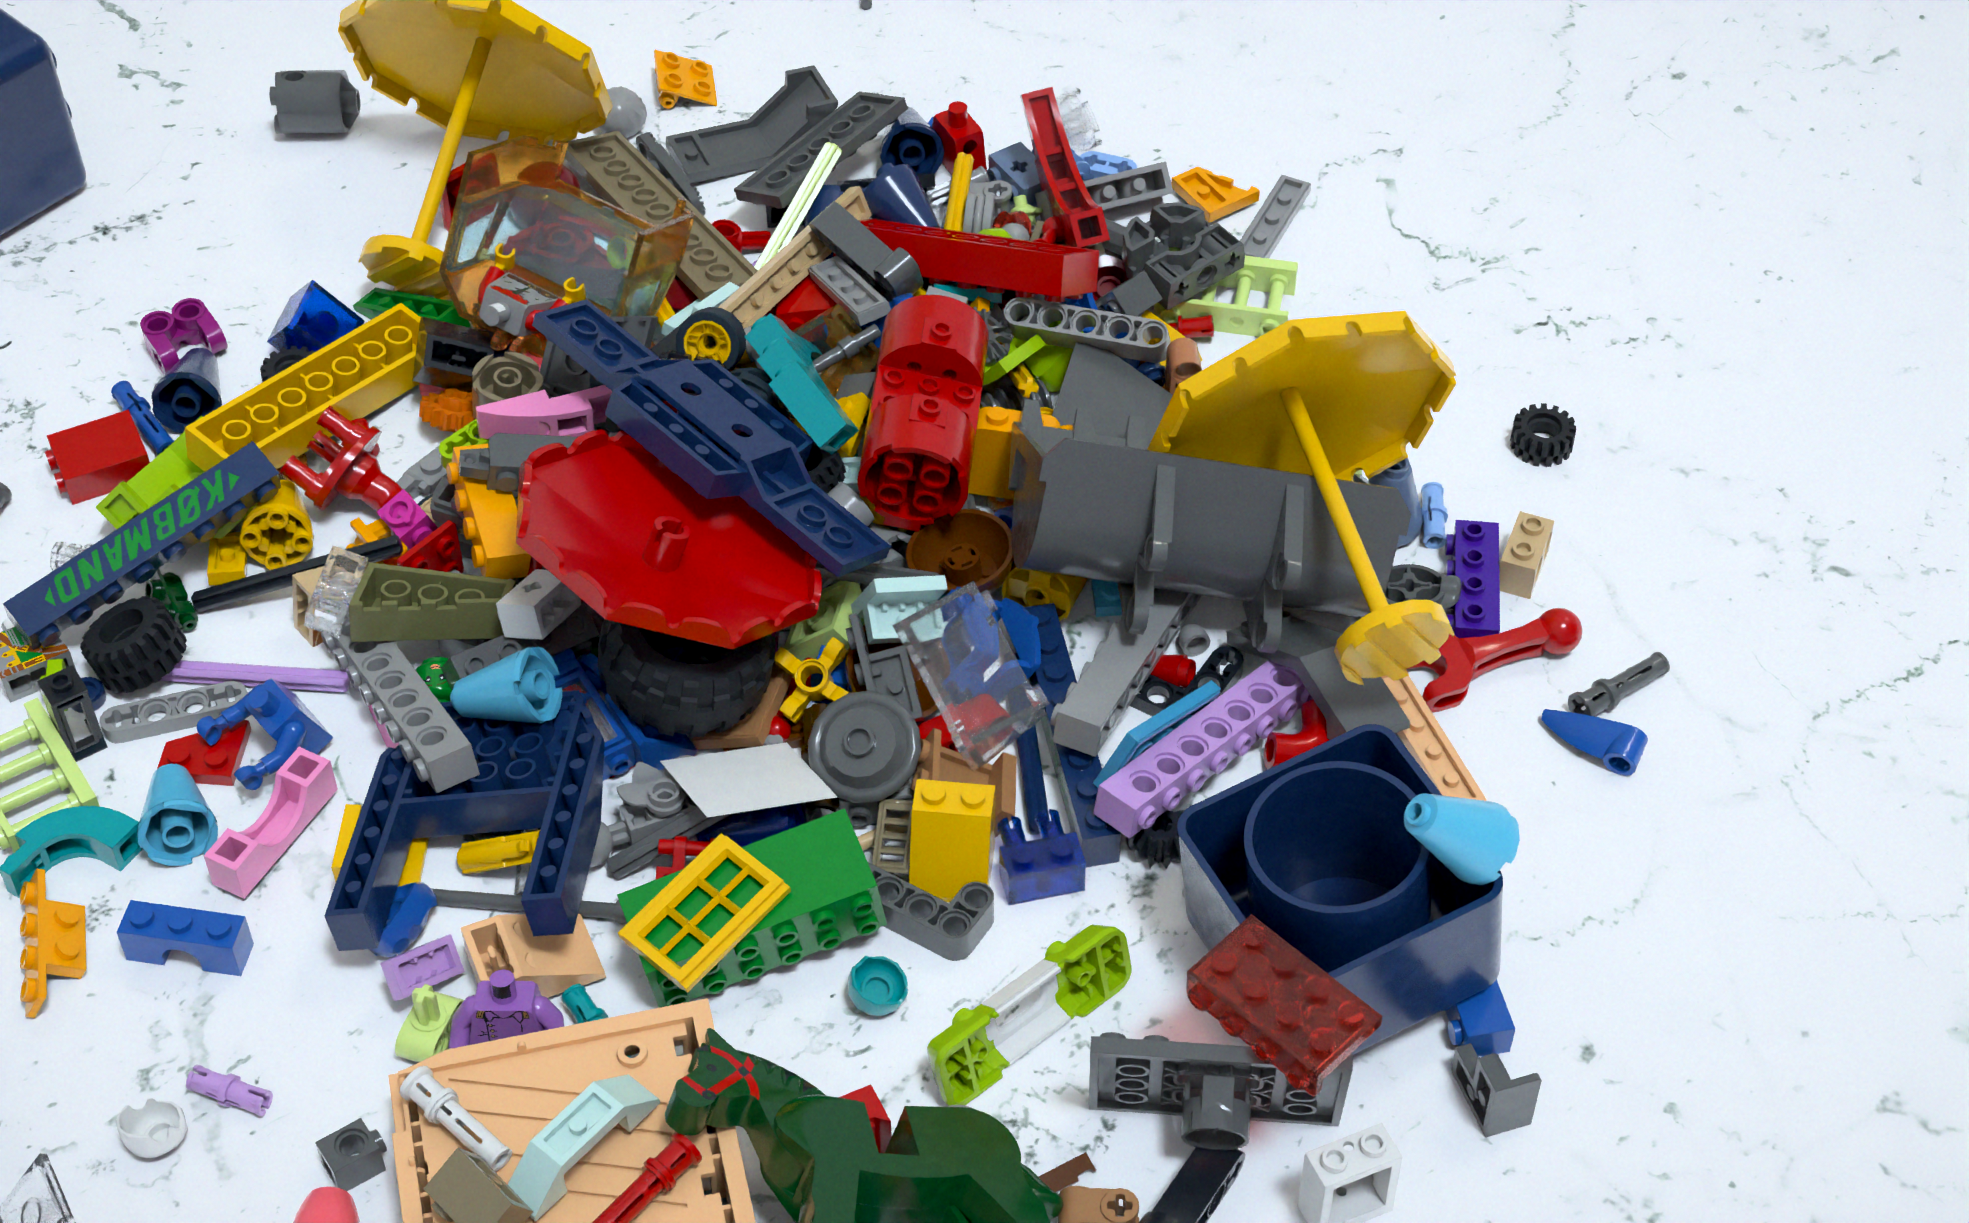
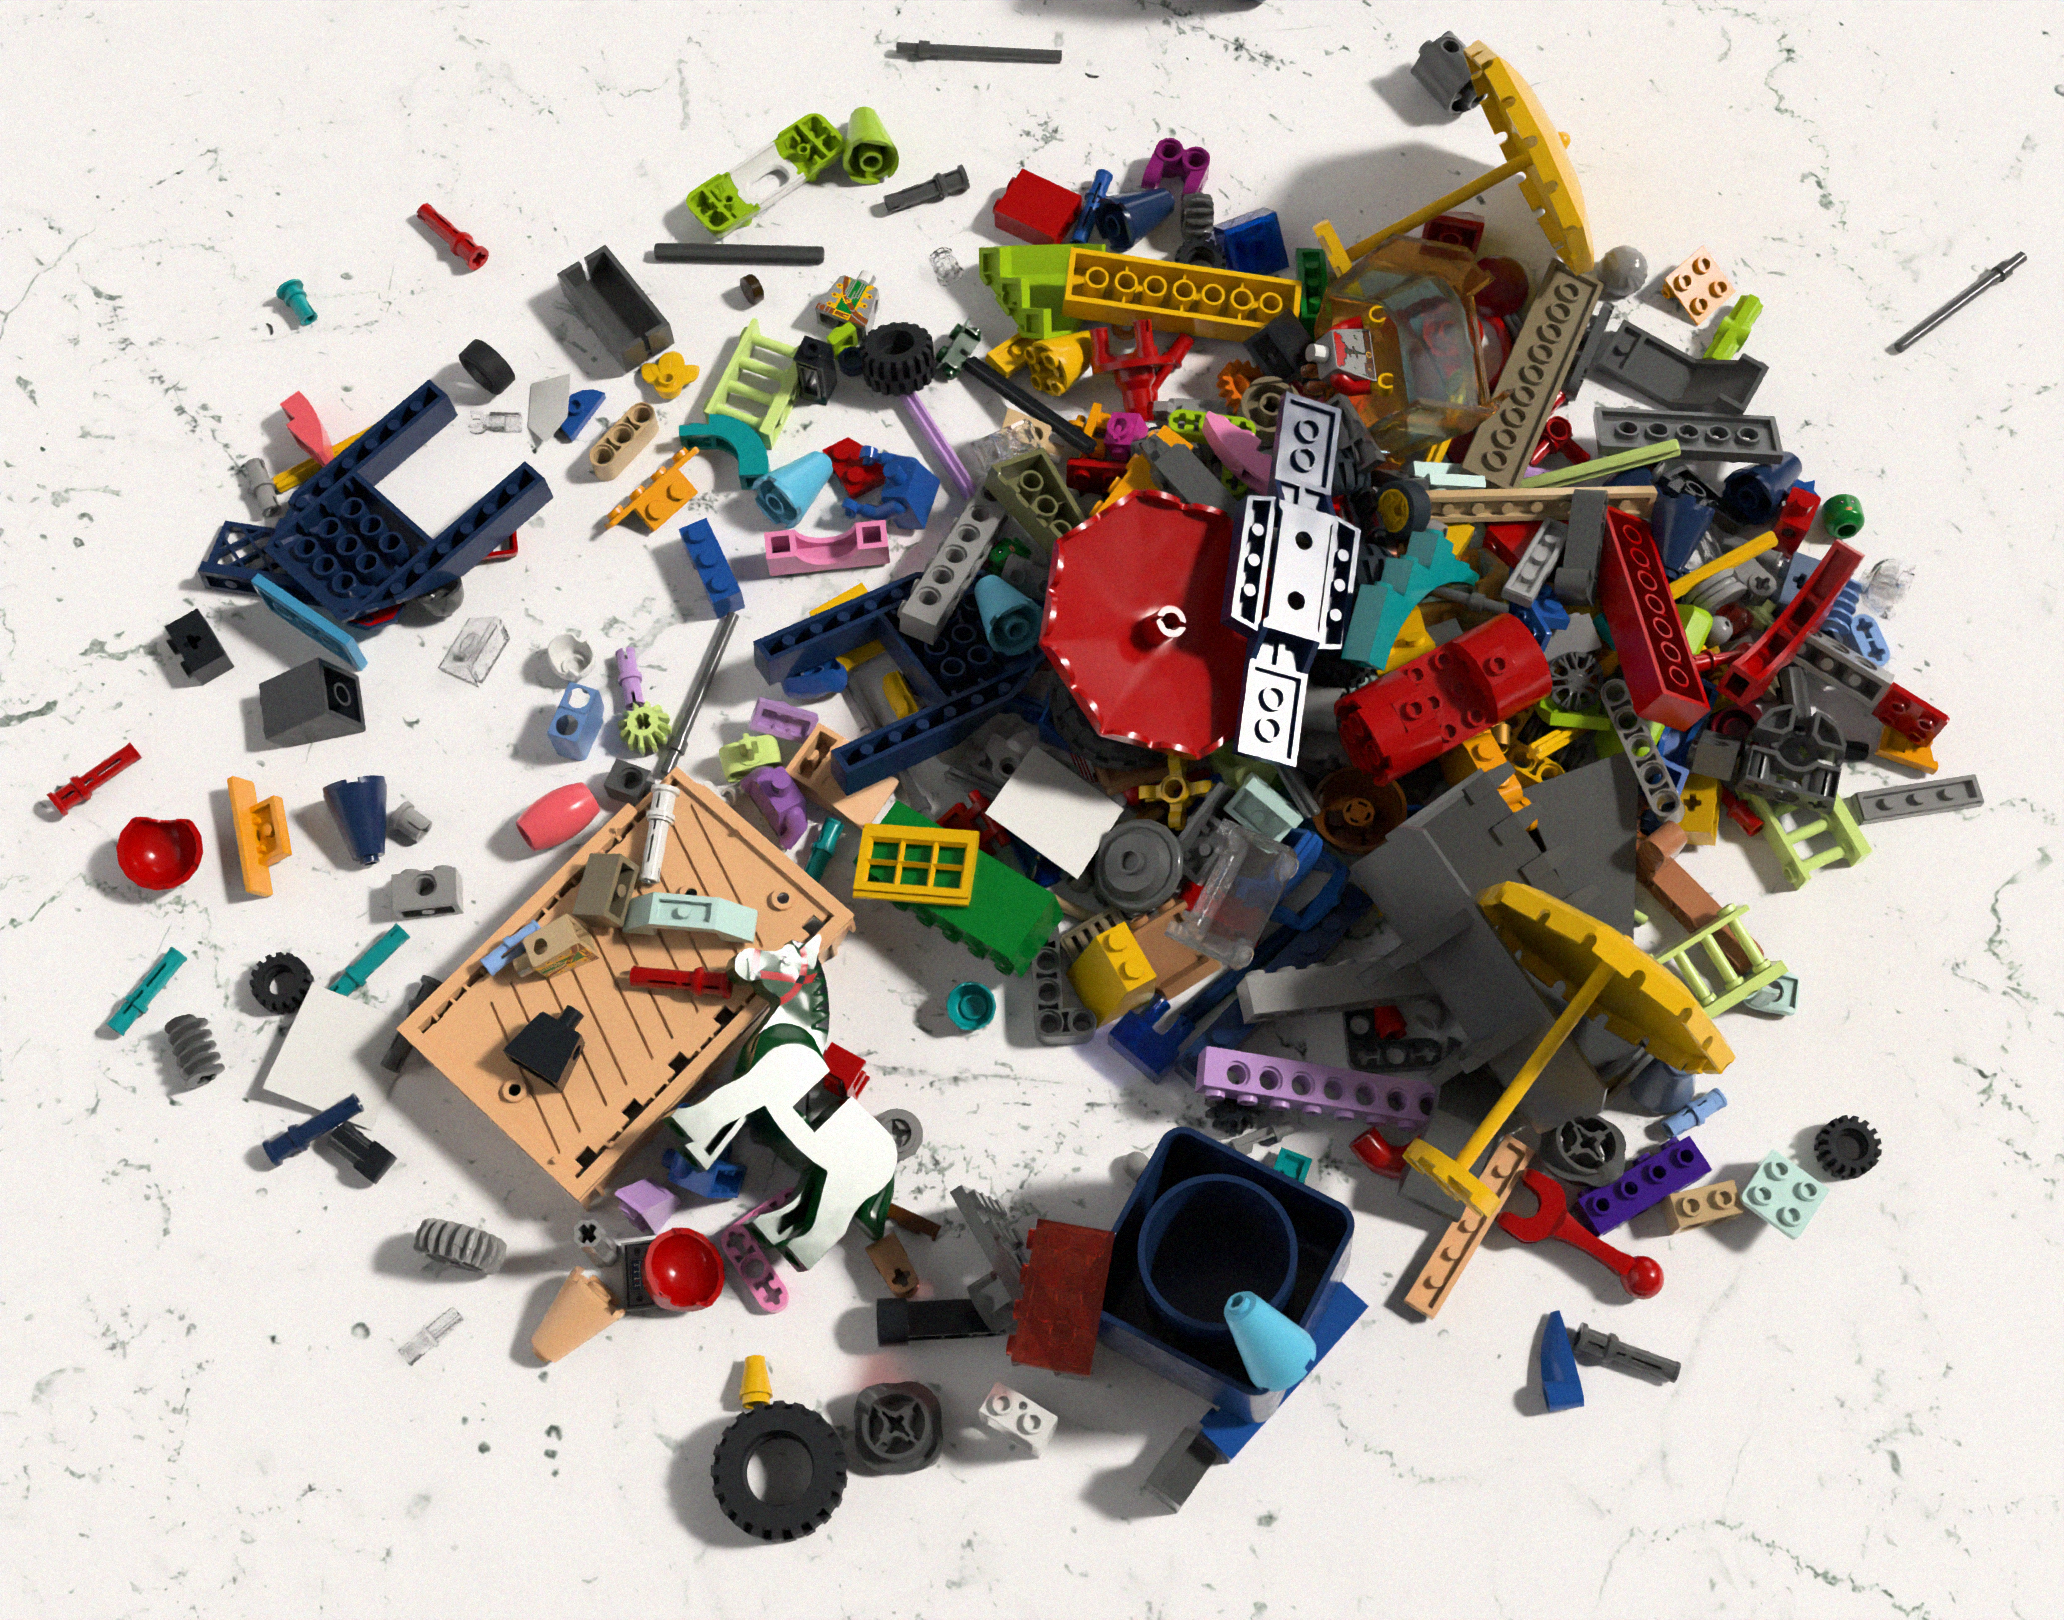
camera: 55 degrees right, 20 degrees up
(143, 546) = (962, 304): dark blue brick -> none
(173, 706) = (880, 419): light grey beam -> none
(245, 344) = (1197, 216): none -> dark grey gear
(246, 1187) = (577, 745): none -> medium blue piece
(300, 1104) = (646, 737): none -> yellowish green gear
(347, 1086) = (678, 743): none -> dark grey bar
(748, 82) = (1734, 329): none -> lime piece
(987, 113) = (1842, 516): none -> green head
(1072, 983) = (968, 1105): lime piece -> none
(1157, 727) = (1298, 1053): dark azure tile -> none
(1163, 946) = (1135, 1164): none -> light grey cylinder
(1203, 165) = (1910, 715): none -> red bracket
(1554, 488) = (1783, 1194): none -> light aqua bracket

